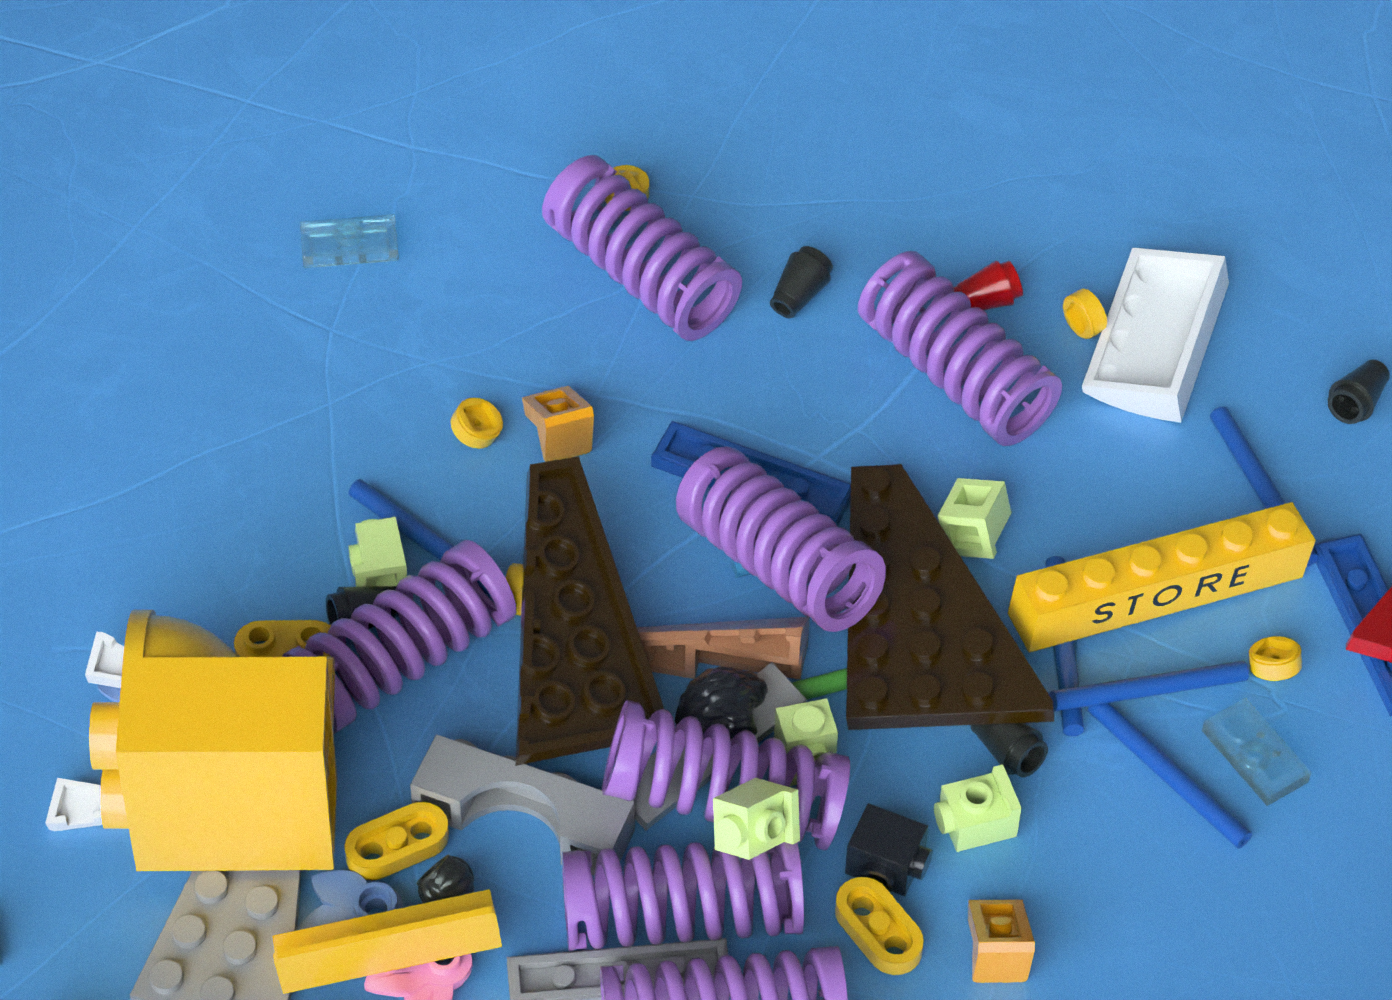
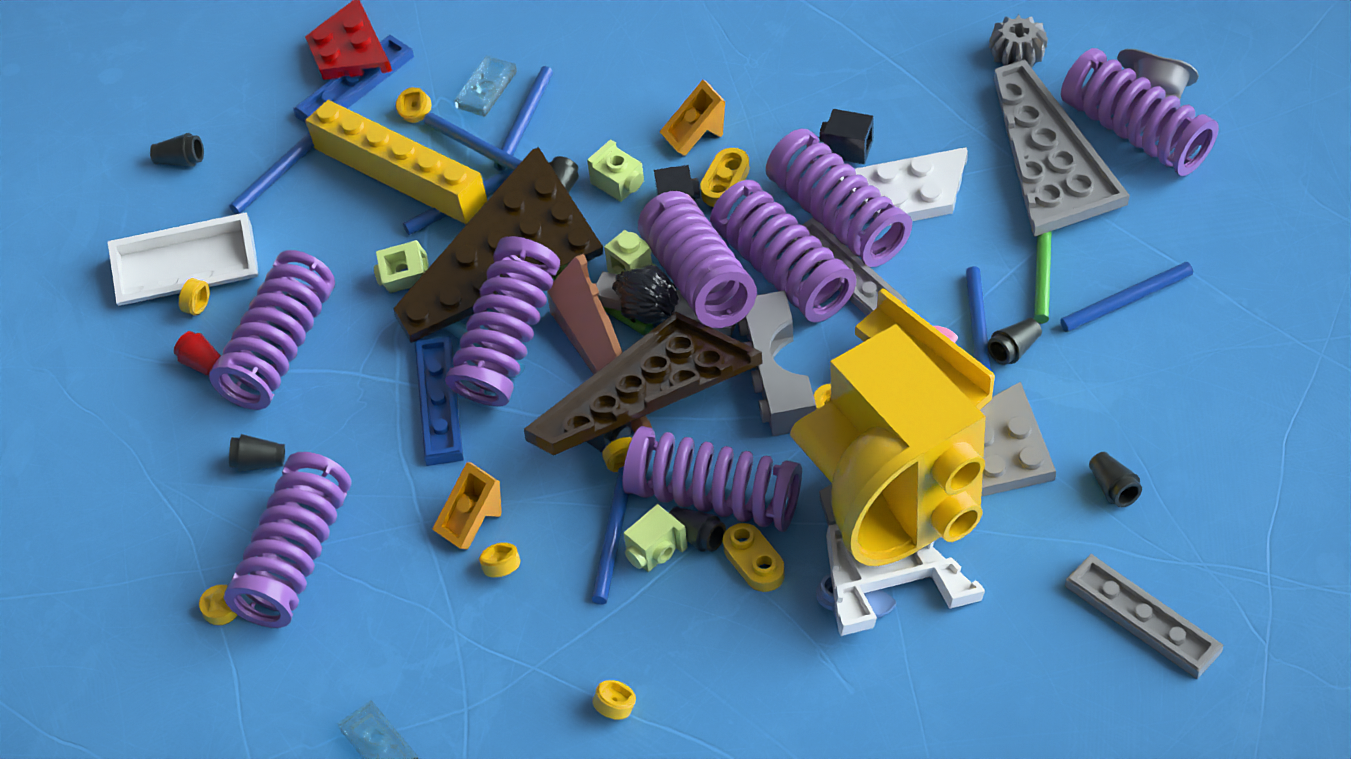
camera: 115 degrees left, 0 degrees up
(220, 433) = (614, 699): none -> yellow tile
(756, 818) = (730, 204): yellowish green brick -> none

